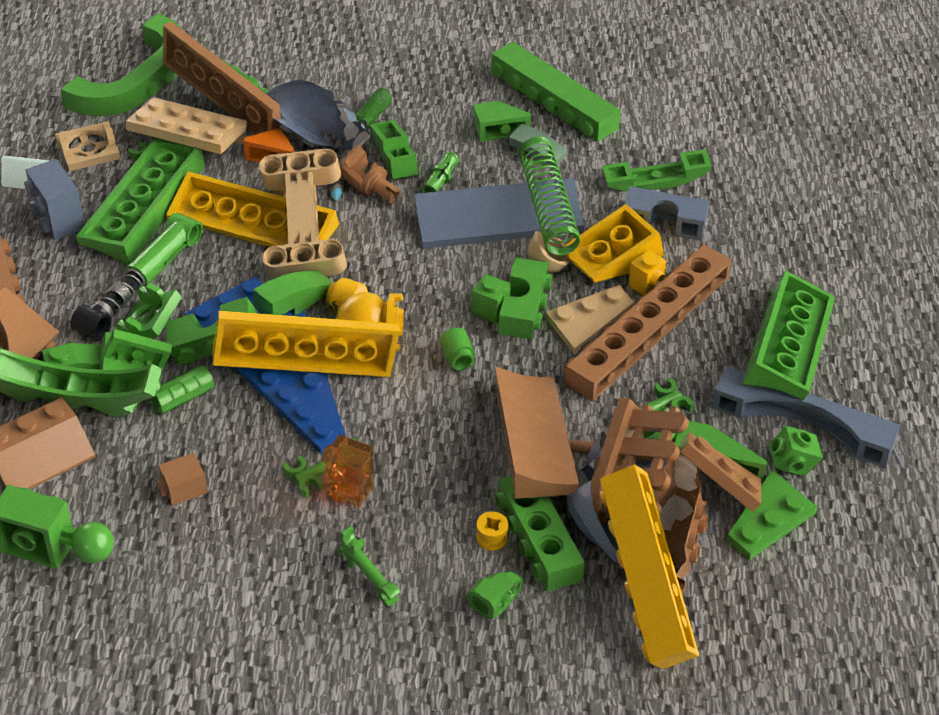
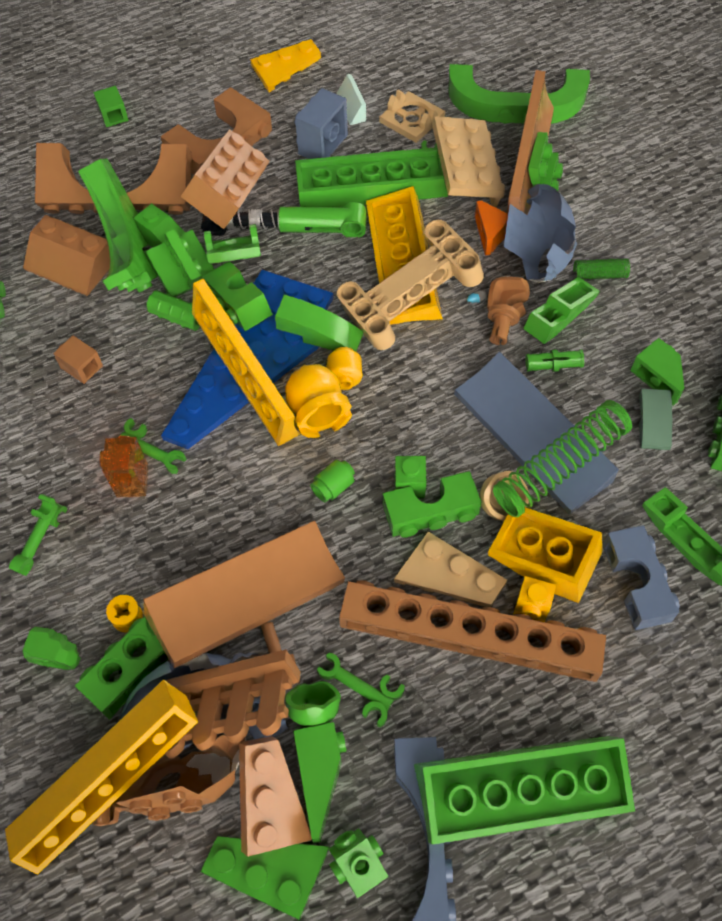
camera: 65 degrees right, 15 degrees up
(71, 278) = (225, 179): none -> medium nougat brick

